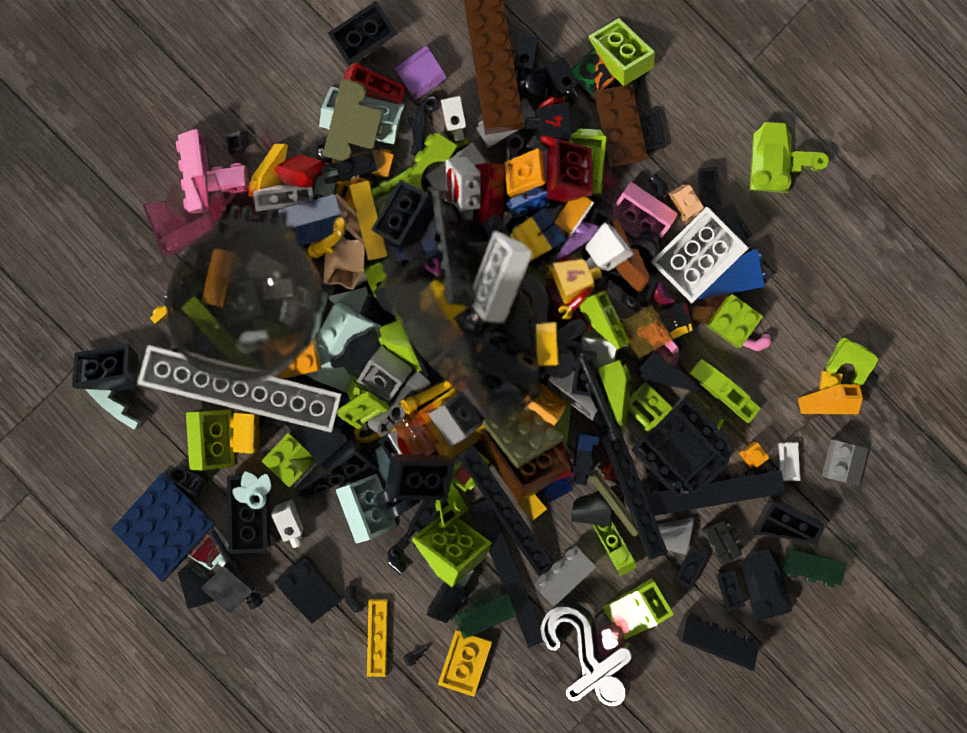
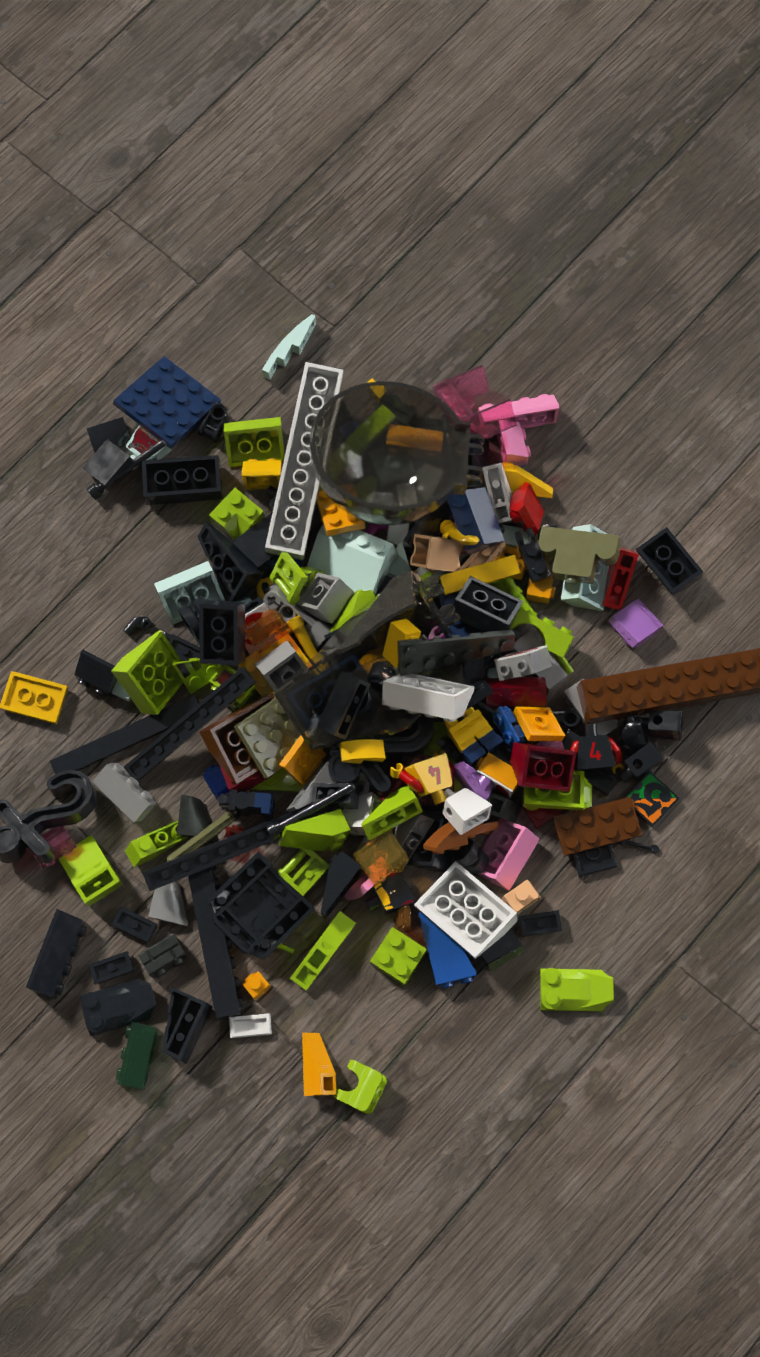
camera: 90 degrees right, 15 degrees down
(106, 369) = (320, 339): black slope -> none
(237, 141) = (552, 452): black slope -> none
(253, 486) = (207, 477): light aqua plate -> none
(286, 516) = (173, 517): white torso -> none
(308, 589) = (107, 541): black slope -> none
(351, 601) = (96, 583): black arm -> none
(357, 351) = (348, 570): black tile -> none
(377, 638) = (58, 611): yellow tile -> none
(410, 658) = (37, 643): black hand -> none
(419, 127) = (580, 625): black plant -> none
(450, 108) = (600, 653): white torso -> none
(484, 615) = (81, 712): clear green brick -> none
(532, 506) = (197, 755): yellow brick -> none
(623, 51) = (675, 824): lime slope -> none
(660, 297) = (420, 878): magenta arm -> none
(662, 187) = (535, 874): black arm -> none
(760, 344) = (374, 985): bright pink arm -> none
(814, 160) = (576, 1028): lime leg -> none
(829, 380) = (340, 1066): yellow plate -> none
(845, 462) = (250, 1087): light grey slope -> none

